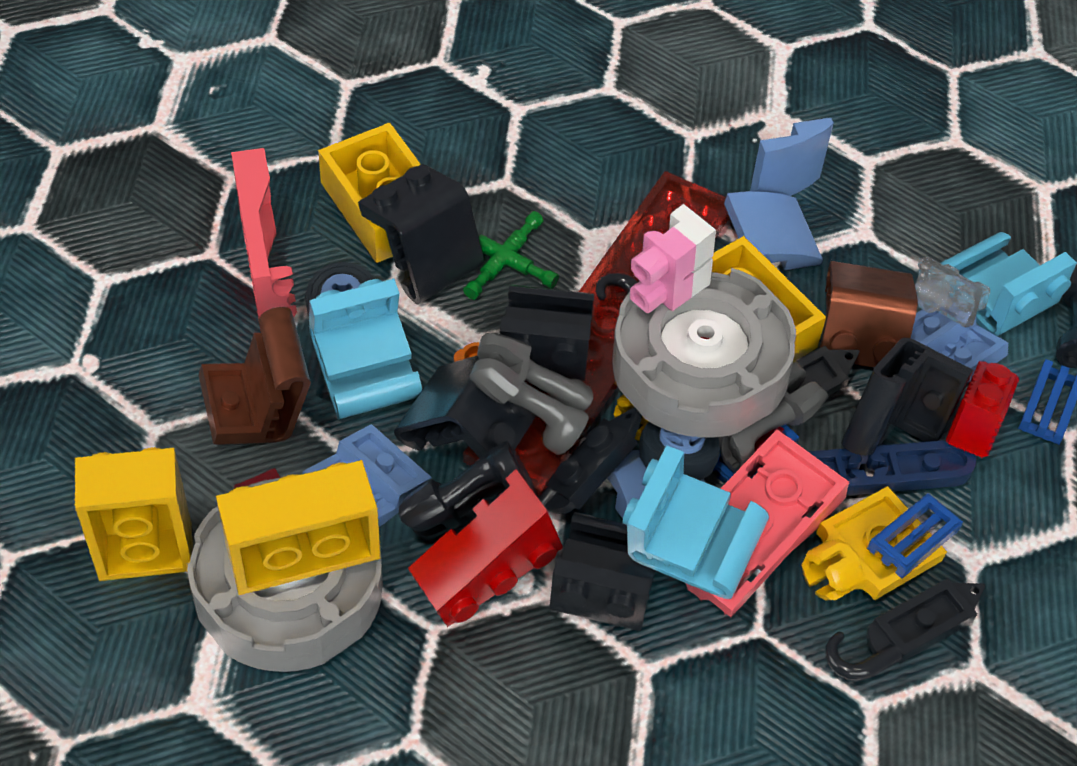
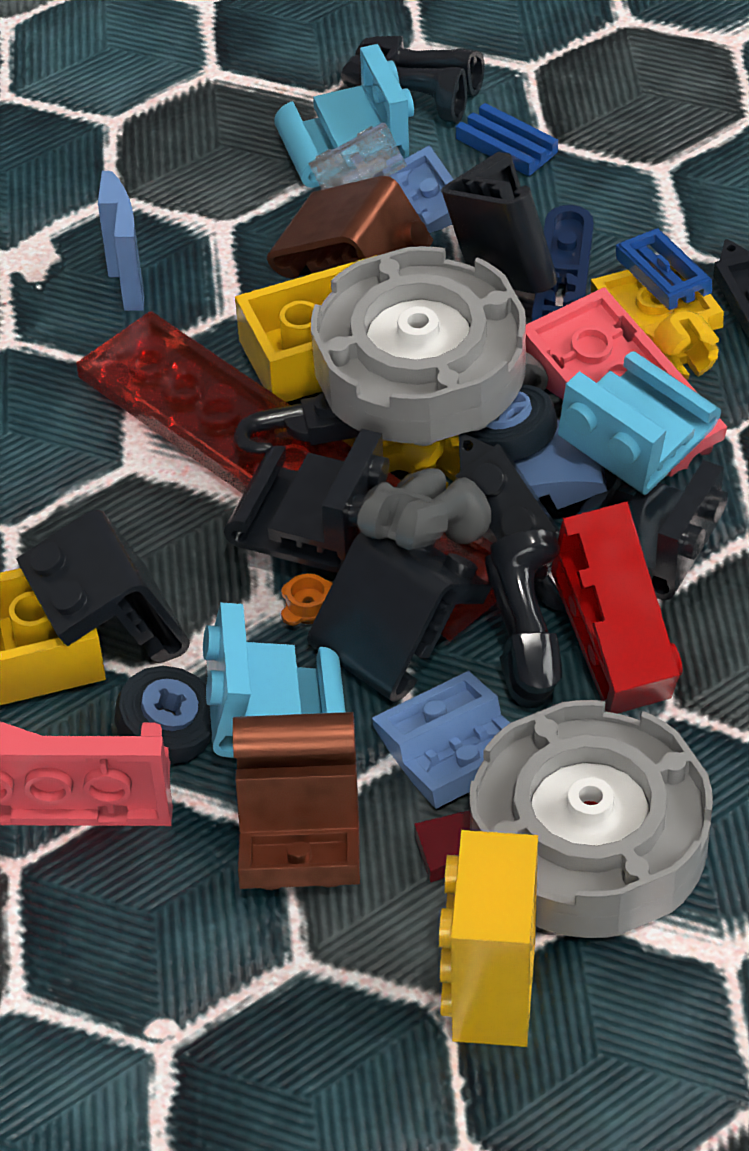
camera: 70 degrees left, 5 degrees down
(300, 526) = (586, 740): yellow brick -> none
(507, 255) = (148, 543): green piece -> none
(674, 263) = (340, 297): bright pink hips -> none
(774, 227) = (198, 292): medium blue slope -> none
(983, 408) = (538, 167): red brick -> none

